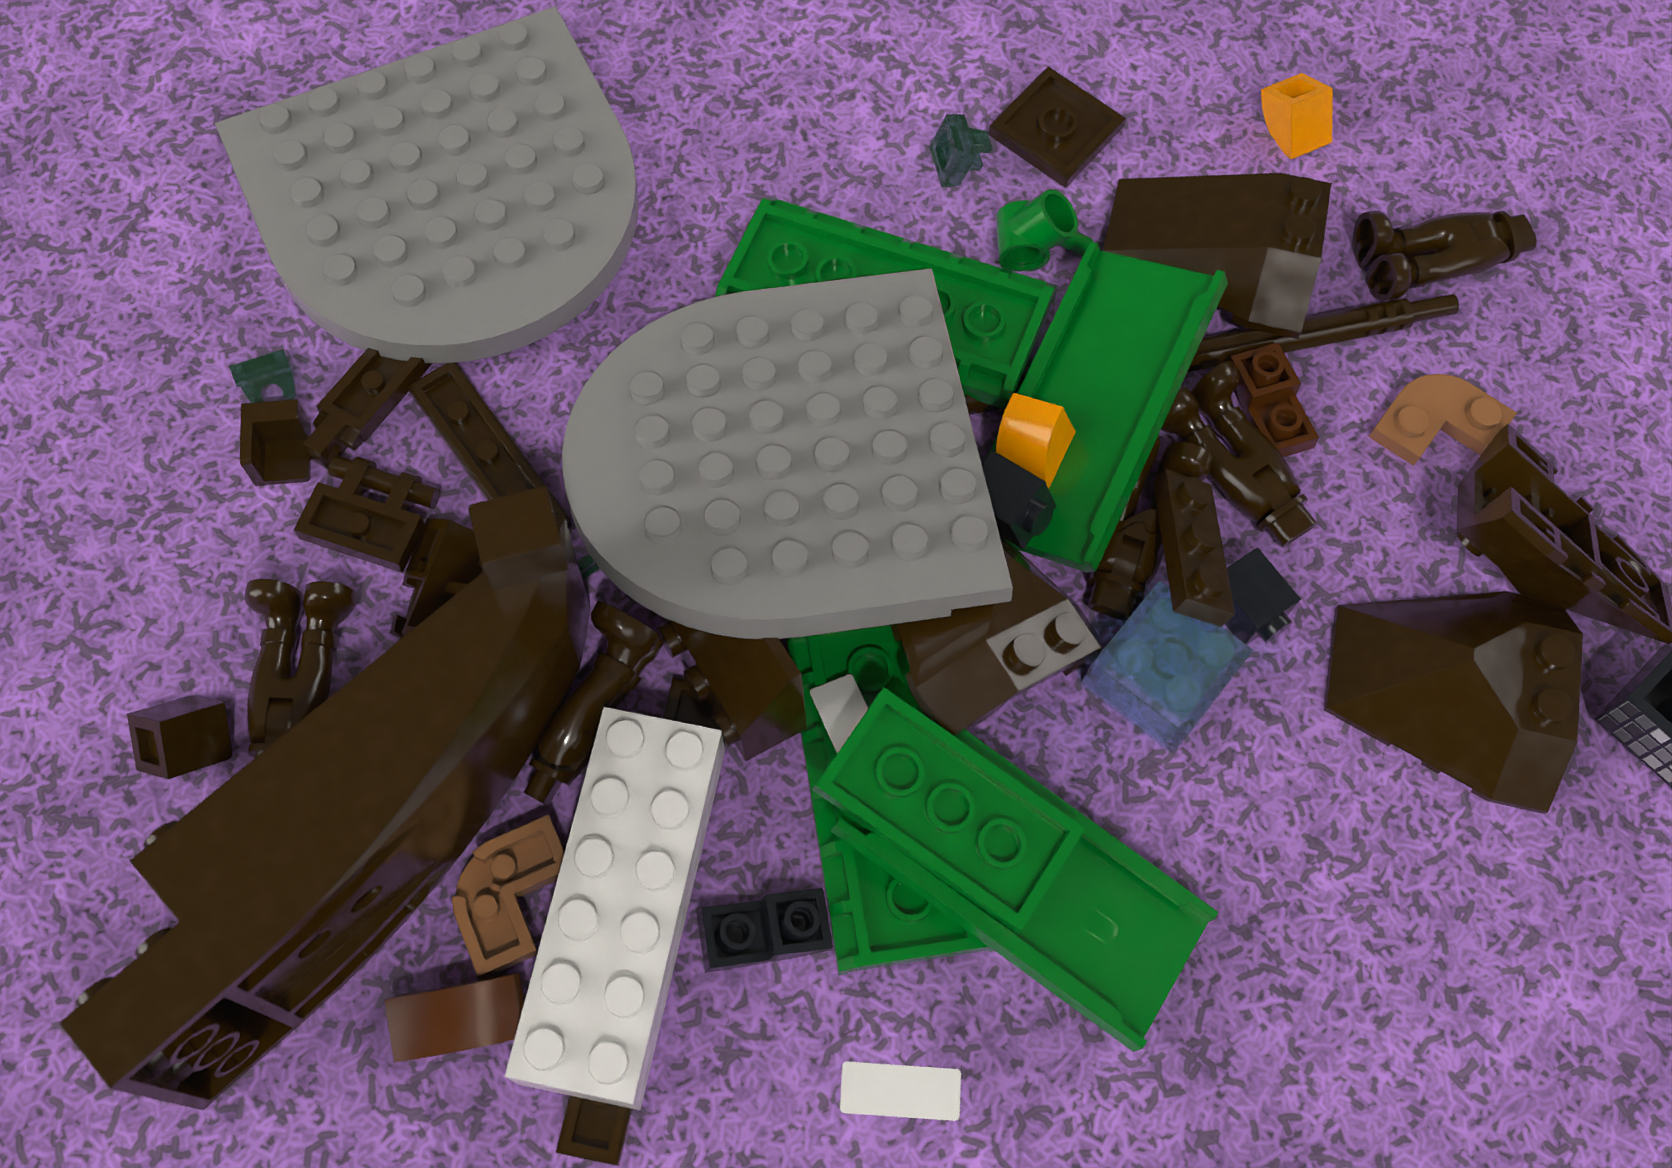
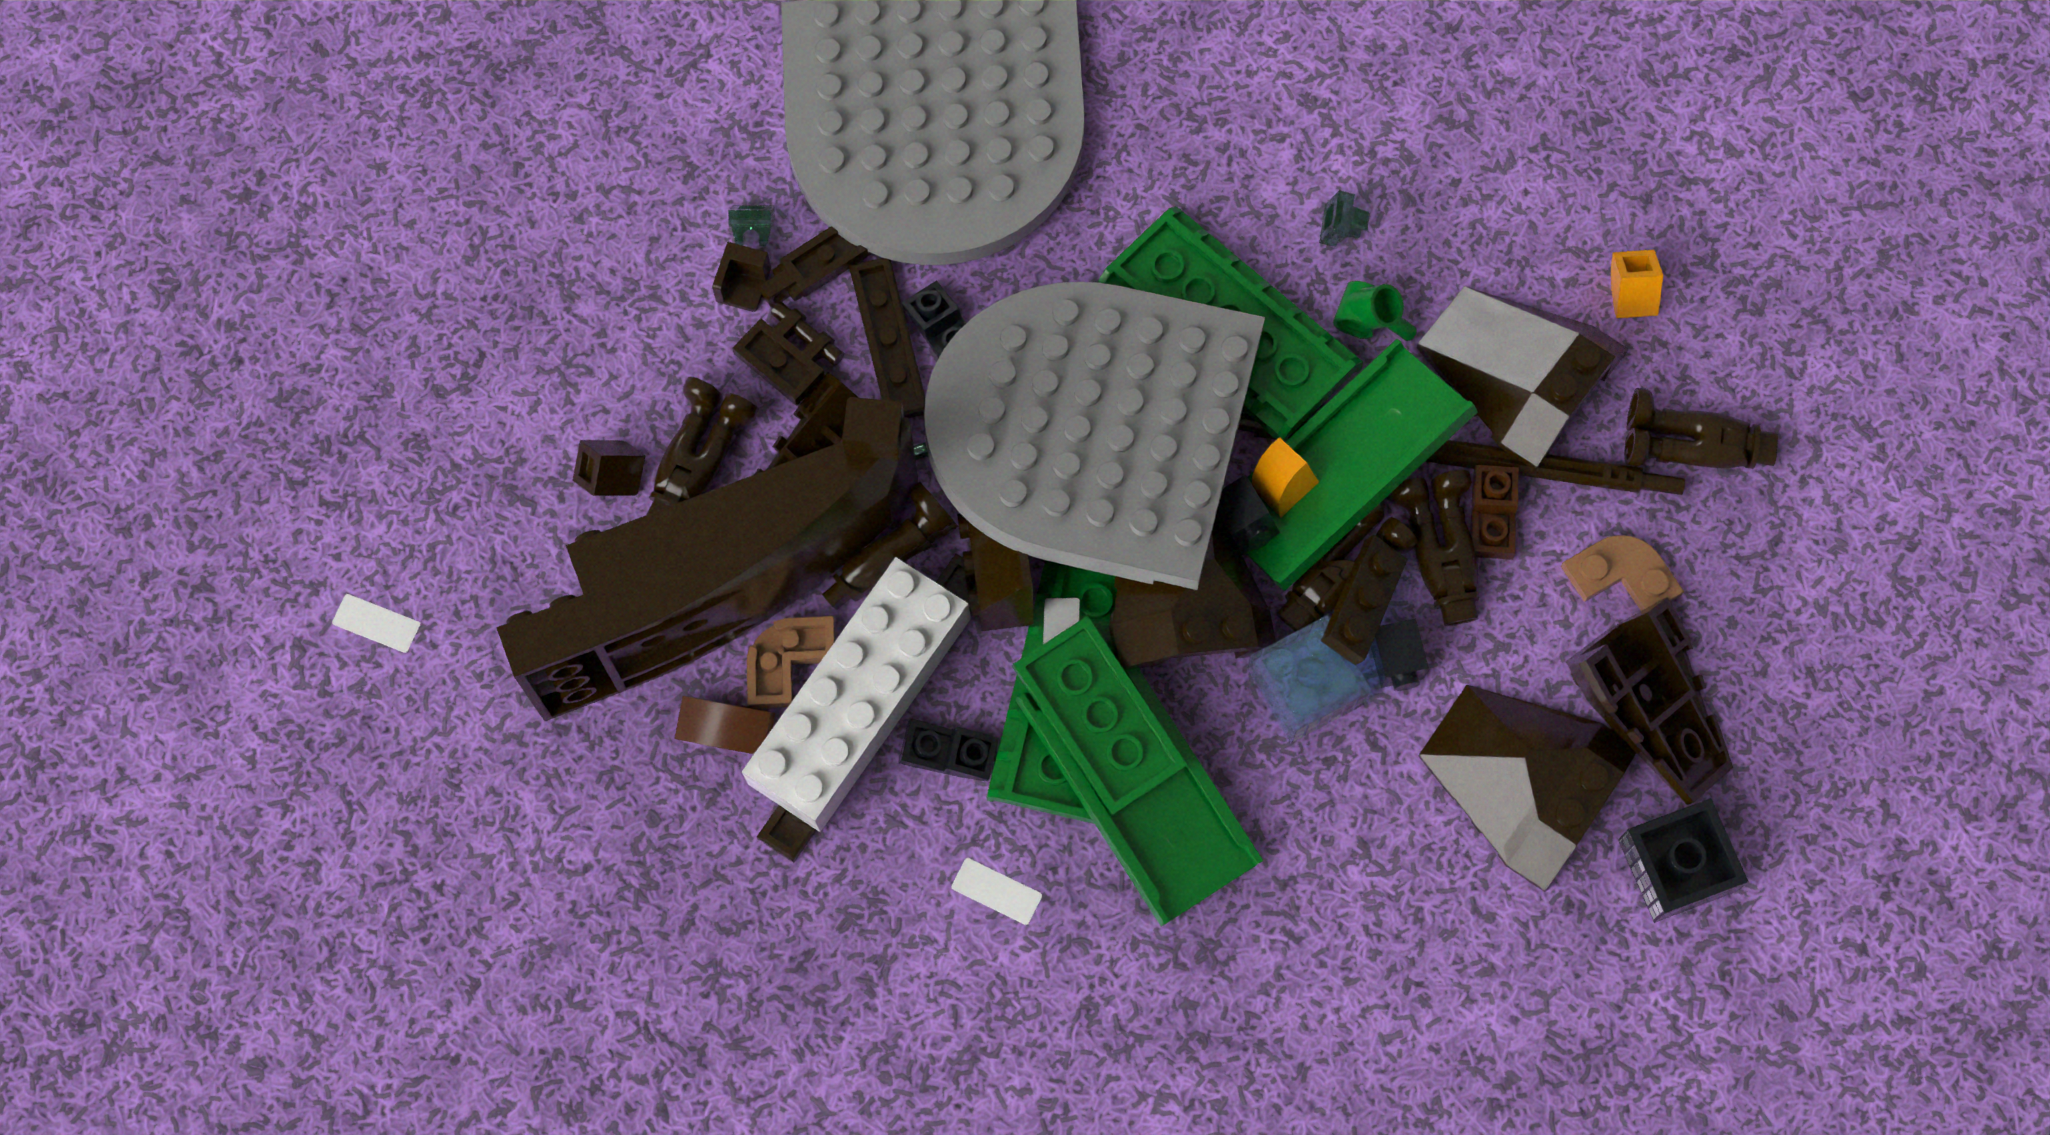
camera: 30 degrees right, 5 degrees up
(535, 409) = (934, 316): none -> black slope
(1056, 126) = (1435, 223): dark brown tile -> none

